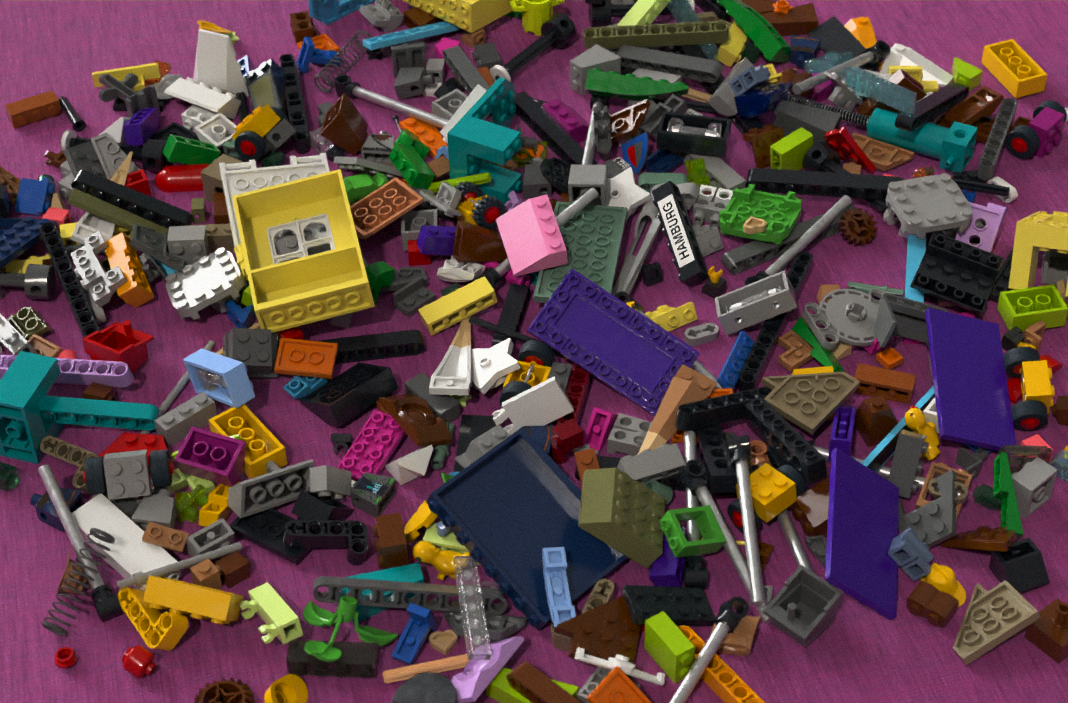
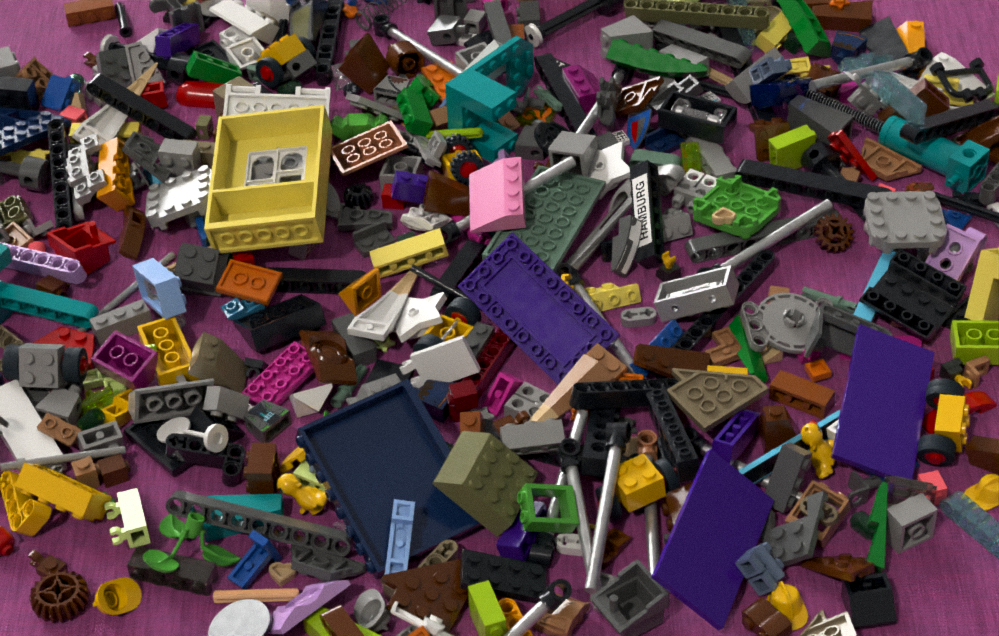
camera: 15 degrees right, 0 degrees up
(65, 338) = (41, 230): none -> light grey bracket
(110, 212) = (115, 116): olive tile -> none
(164, 326) = (132, 232): none -> reddish brown slope
(193, 522) = (91, 419): none -> clear green brick
(197, 678) = (46, 565): none -> reddish brown plate
(303, 441) = (218, 361): none -> dark tan slope
(305, 76) = (350, 11): none -> orange plate
(335, 517) = (214, 438): none -> white piece
(379, 276) = (340, 214): green brick -> none
(381, 115) = (404, 58): none -> reddish brown brick
(383, 253) = (358, 195): none -> black gear
(423, 350) = (362, 292): none -> light orange slope
(472, 608) = (309, 545): clear tile -> none
(541, 138) = (551, 101): none -> sand green axle
(551, 661) = (371, 611): none -> light grey piece
(613, 458) = (520, 418): none -> reddish brown plate
(664, 490) = (538, 463): sand green brick -> none
(668, 266) = (625, 245): none -> slope
(721, 565) = (573, 544): none -> white beam
(752, 370) = (664, 359): none -> reddish brown wing
(930, 54) = (976, 67): none -> black bar

